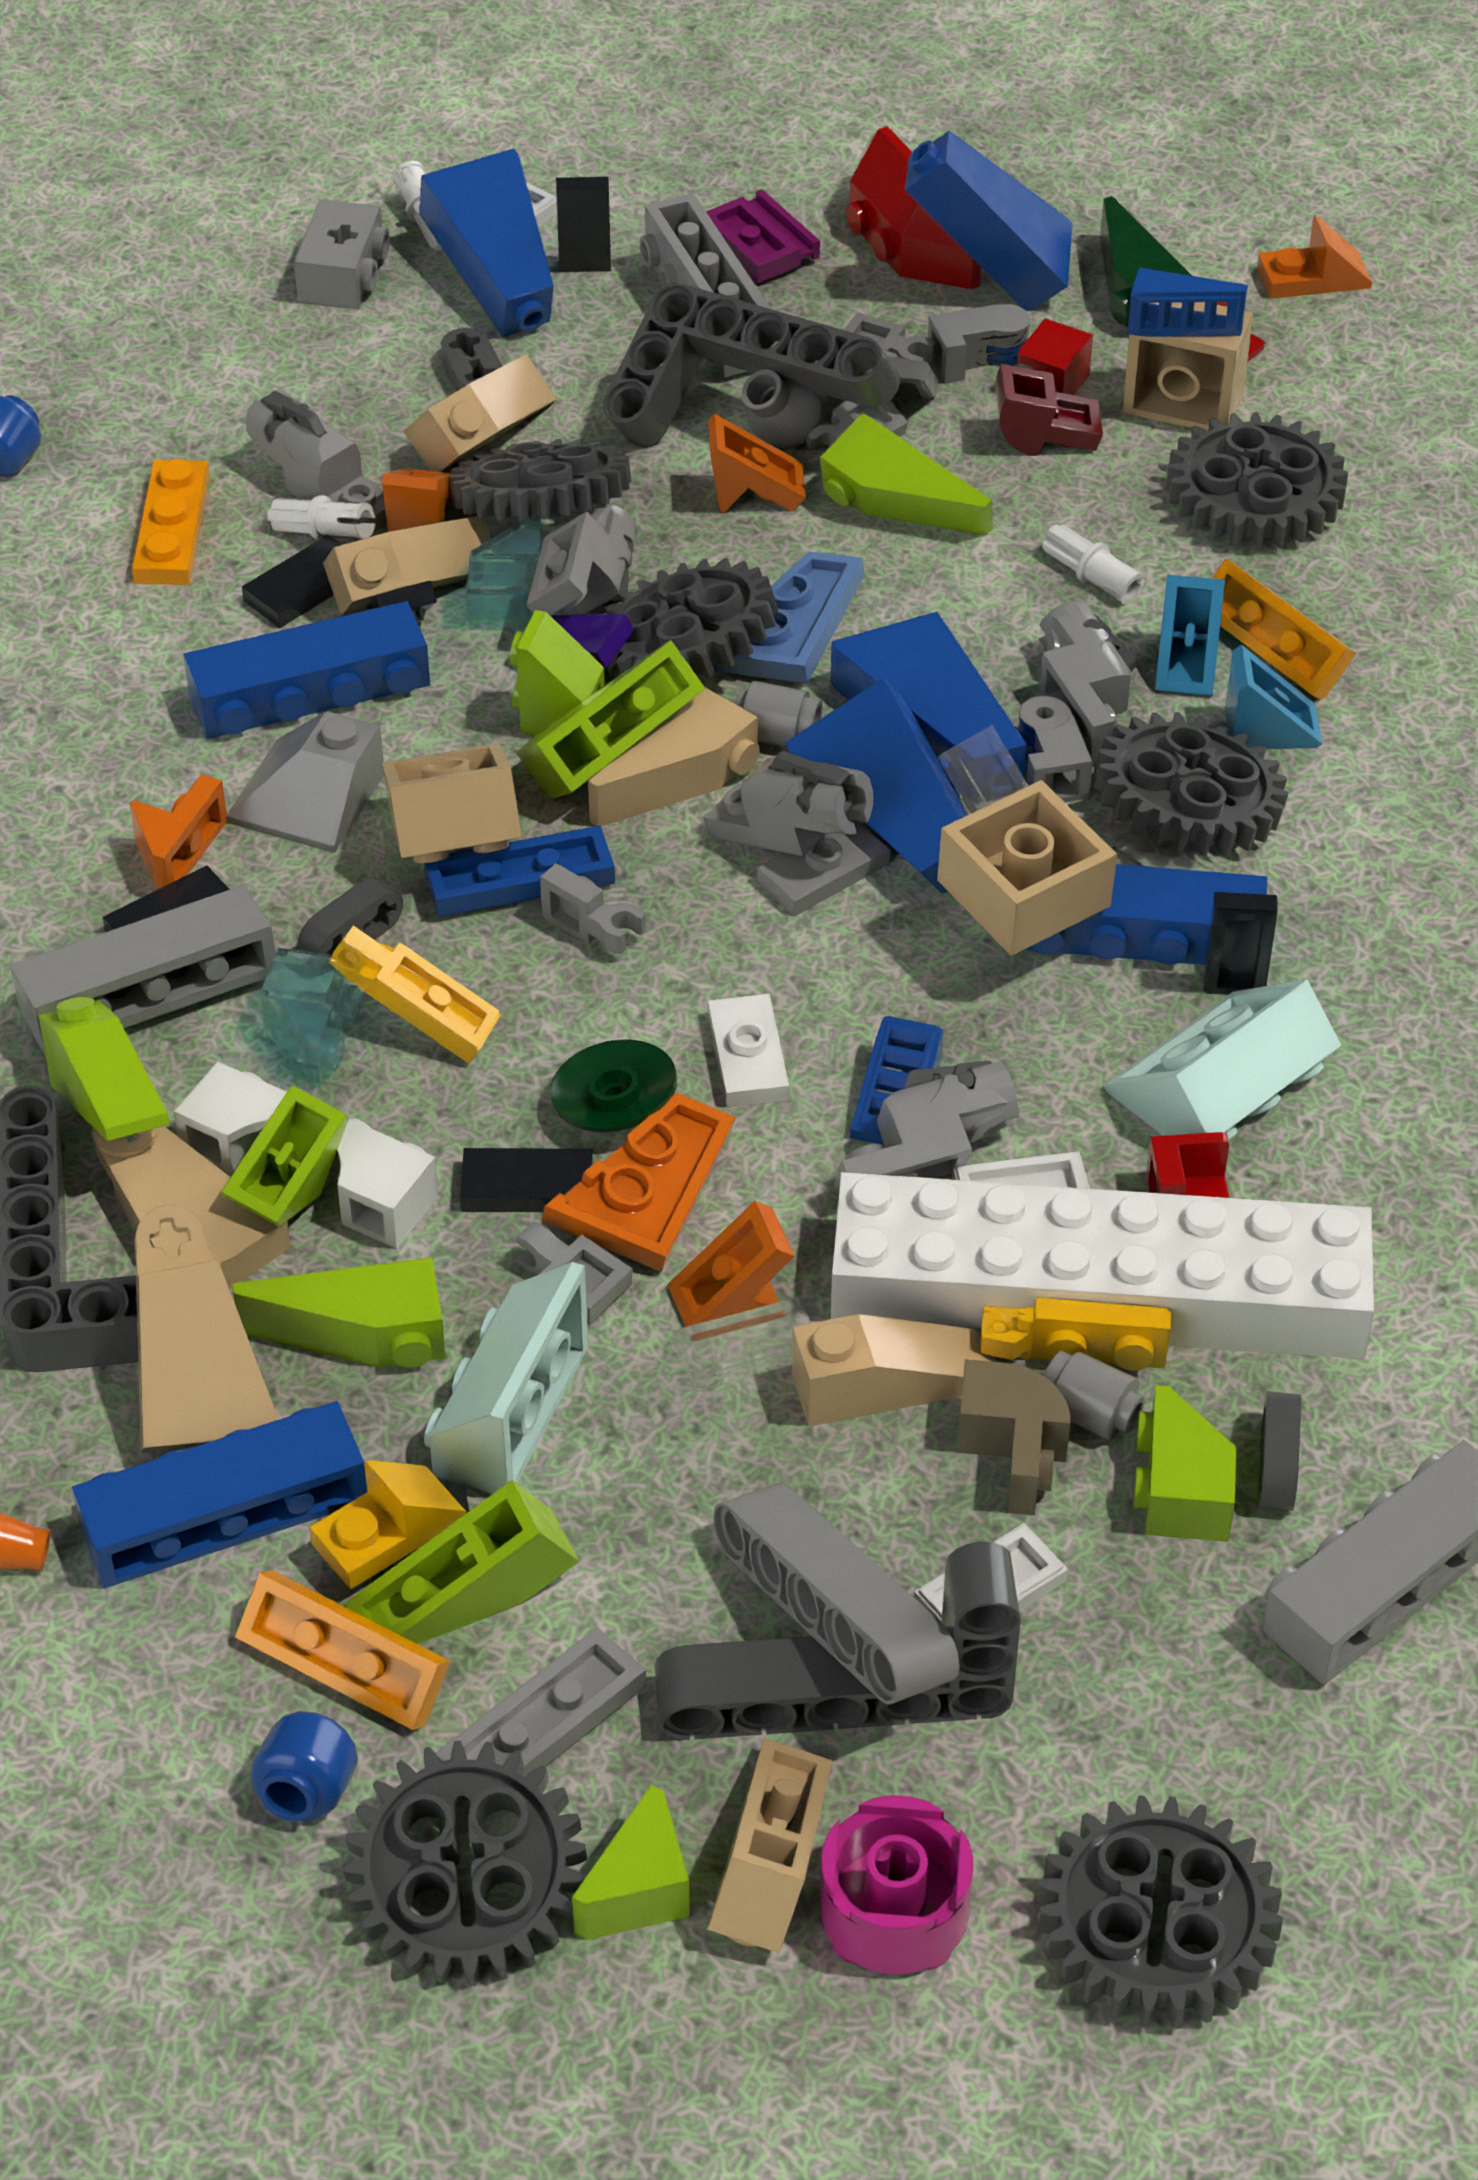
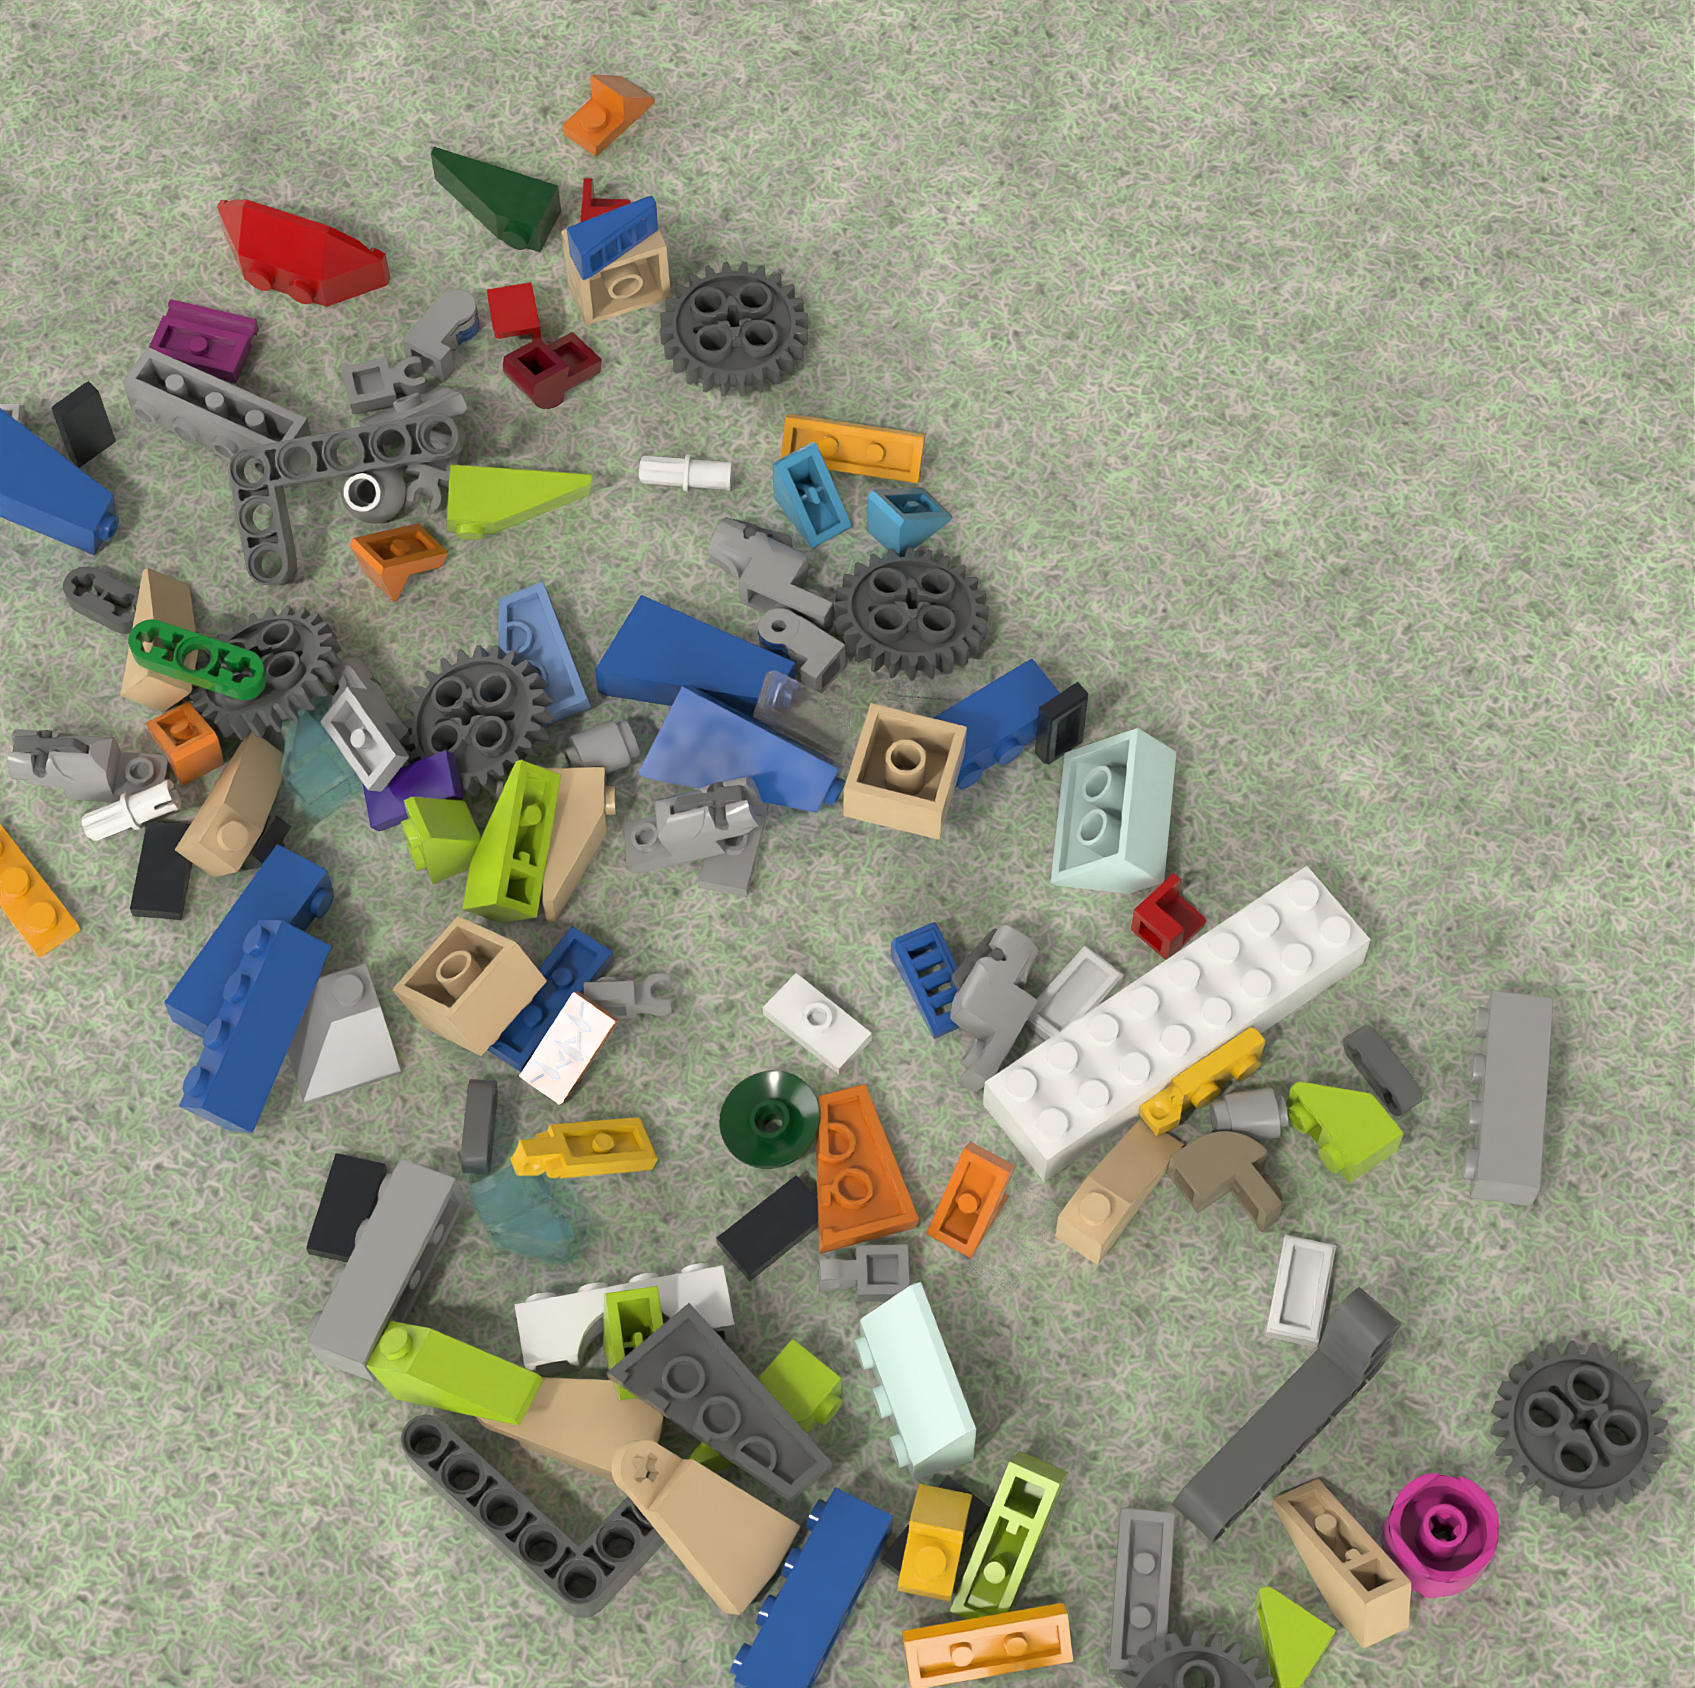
camera: 40 degrees left, 15 degrees up
(178, 839) = (293, 1154): orange slope -> none
(235, 714) = (254, 1025): none -> blue brick
(302, 1243) = (714, 1396): none -> dark grey wing
(479, 436) = (188, 641): none -> green beam
(491, 910) = (569, 1047): none -> tile
(836, 1593) = (1247, 1377): light grey beam -> none
(993, 218) = (389, 231): blue slope -> none

